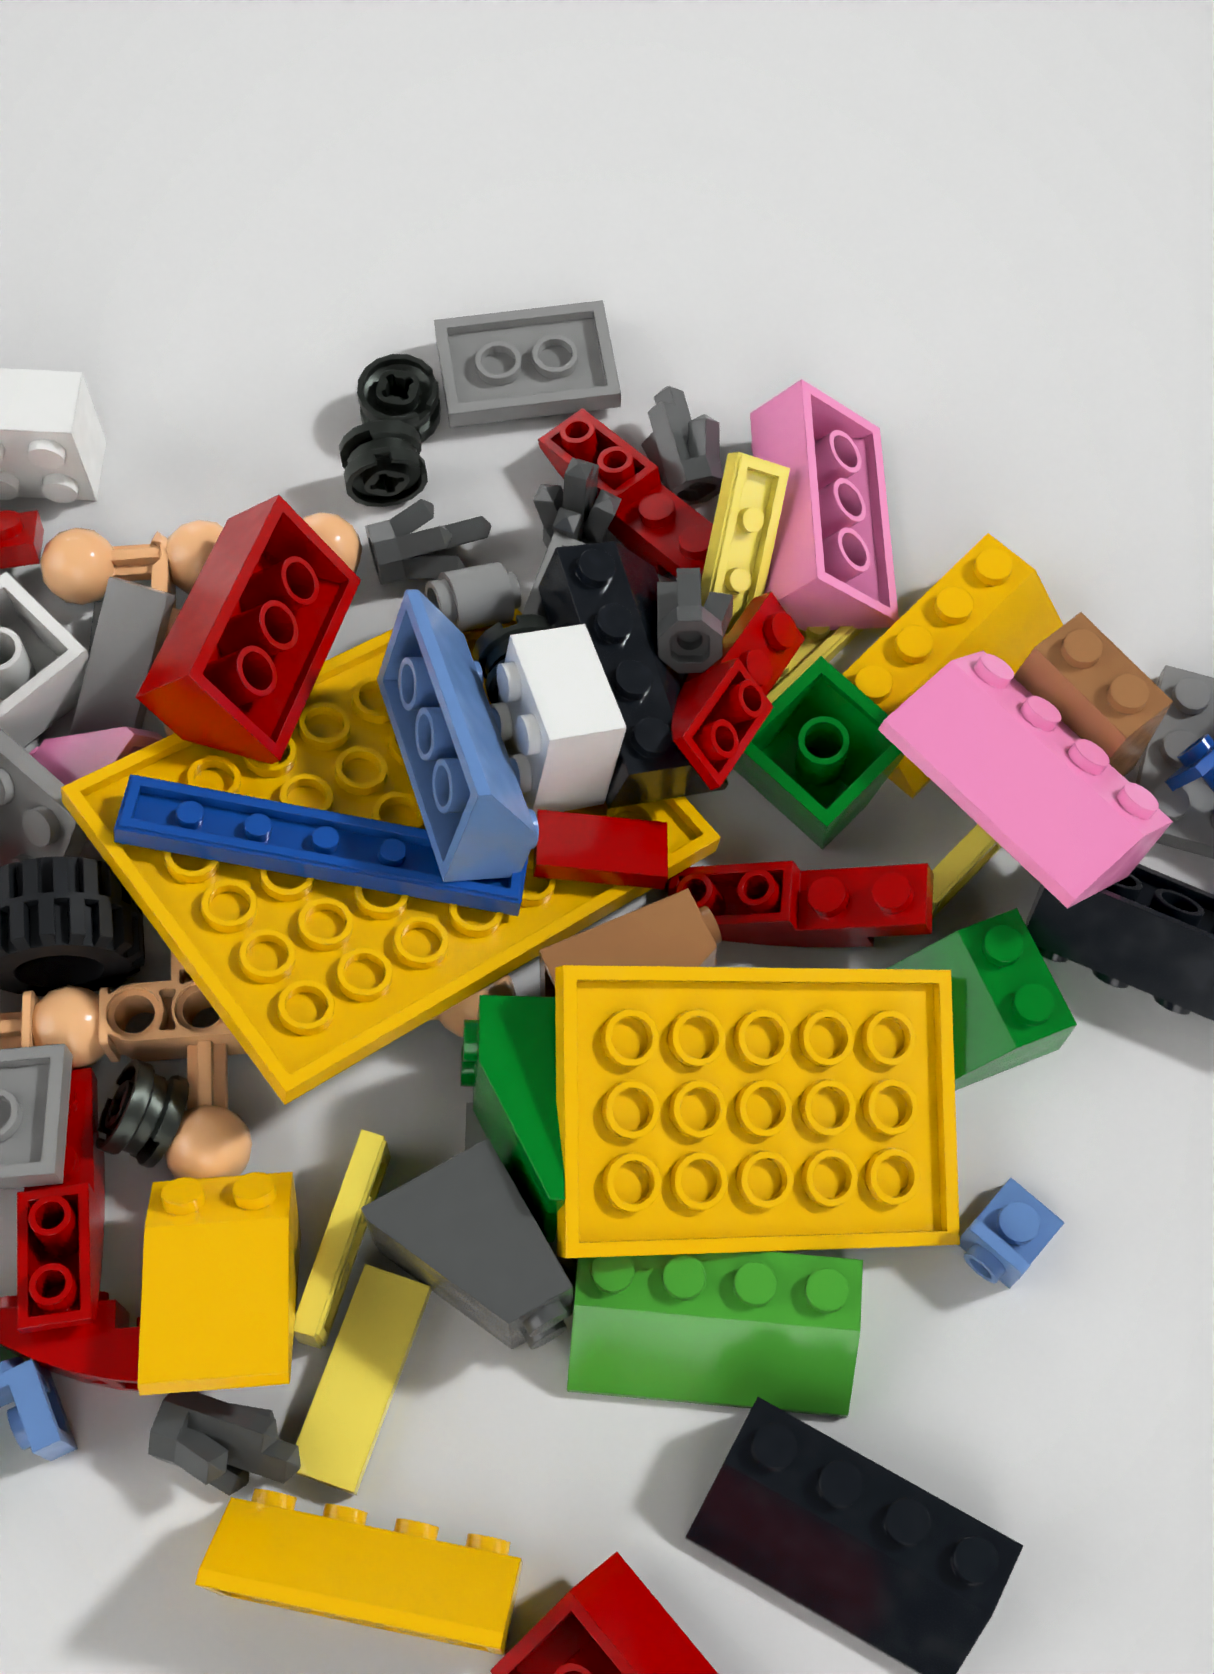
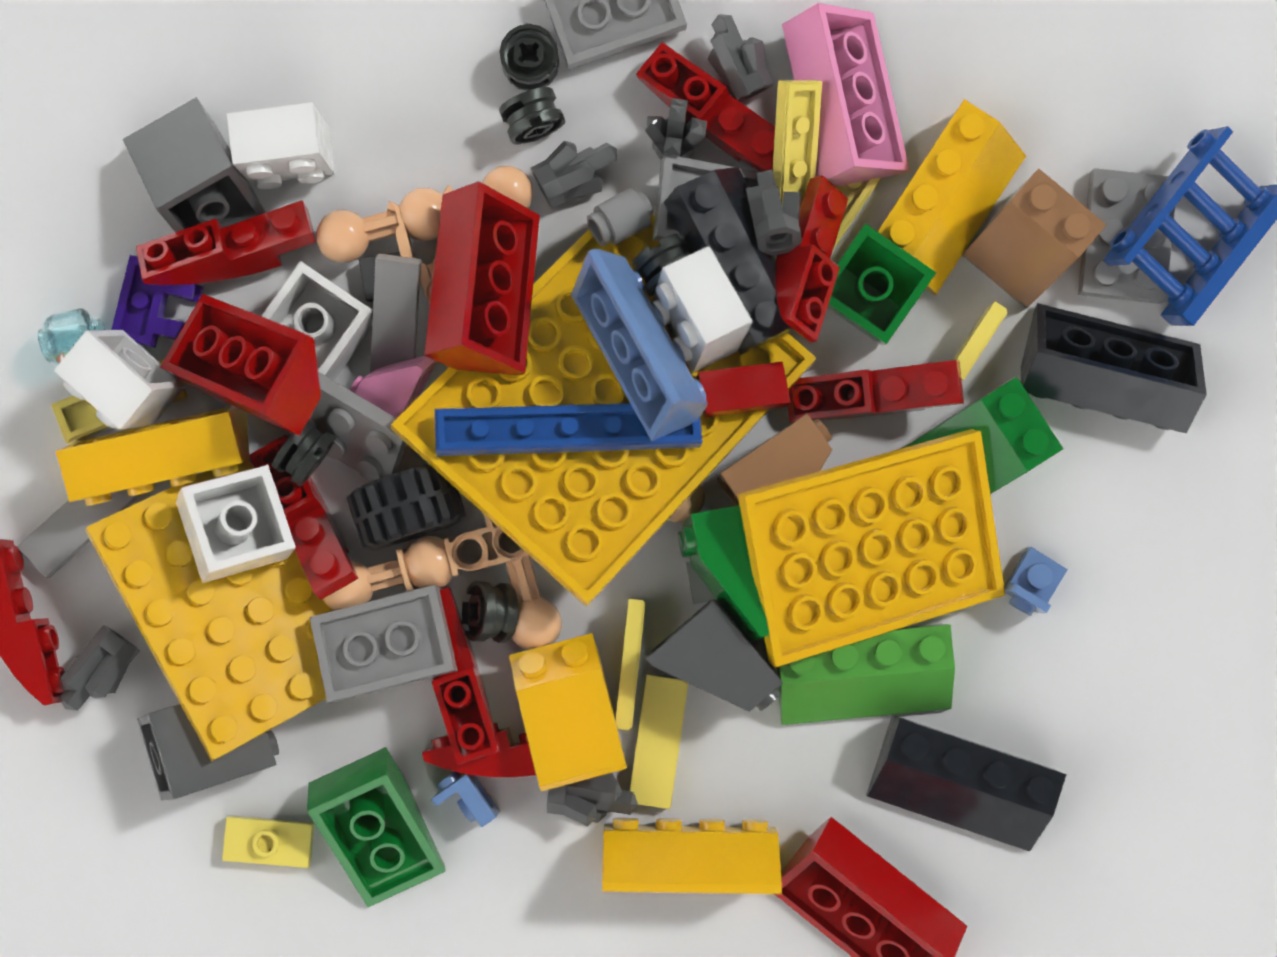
camera: 10 degrees left, 20 degrees up
(1027, 777) = (1013, 291): bright pink slope -> none

